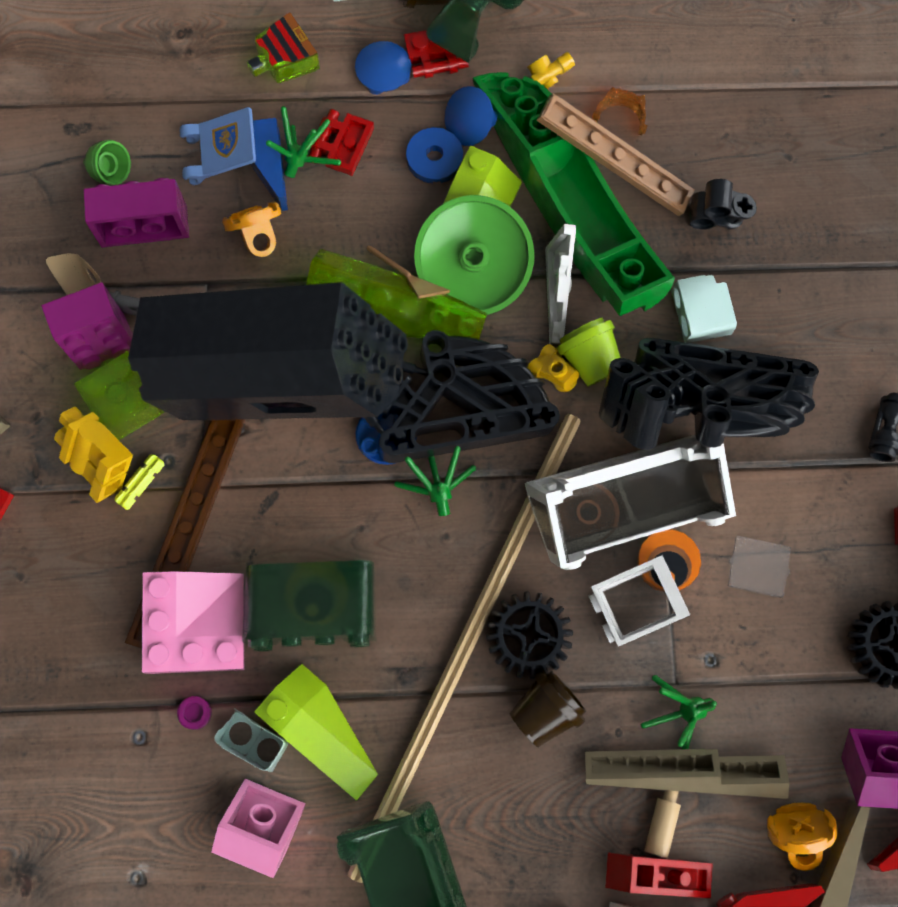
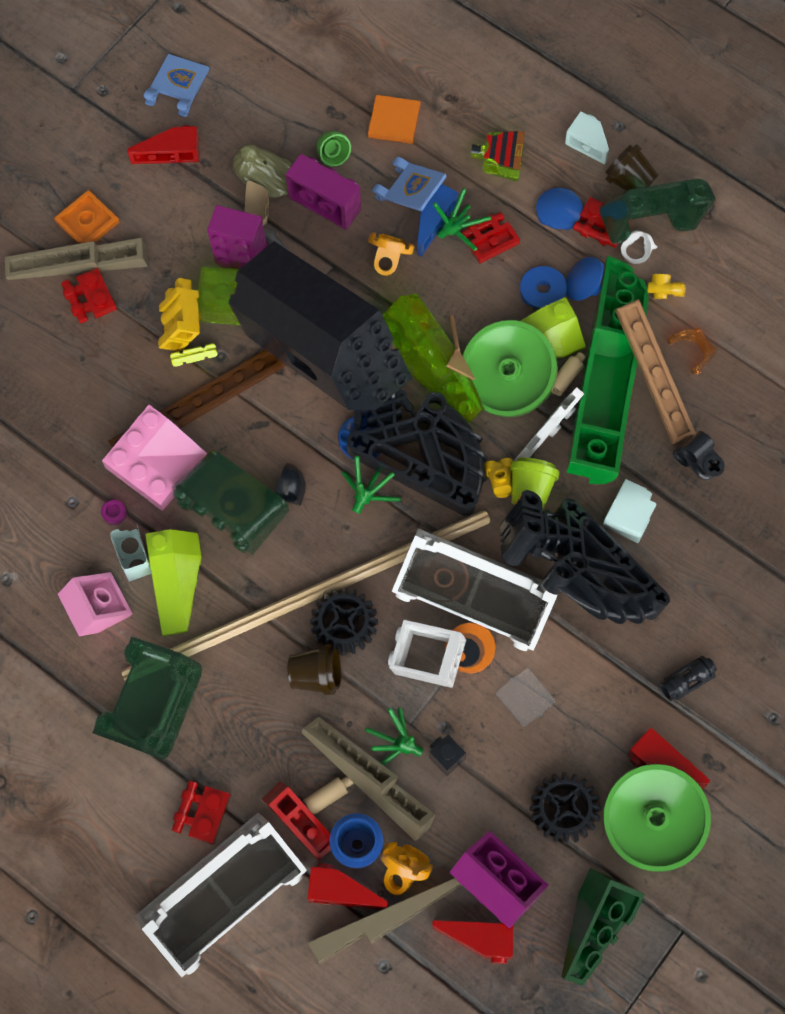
camera: 45 degrees right, 5 degrees down
(50, 235) = (262, 168): none -> olive hair
(144, 92) = (394, 119): none -> orange tile
(357, 537) = (291, 485): none -> black brick
(498, 44) = (648, 242): none -> white piece
(529, 211) = (568, 373): none -> tan cylinder
(743, 686) = (446, 754): none -> black brick
(758, 856) = (356, 828): none -> blue piece

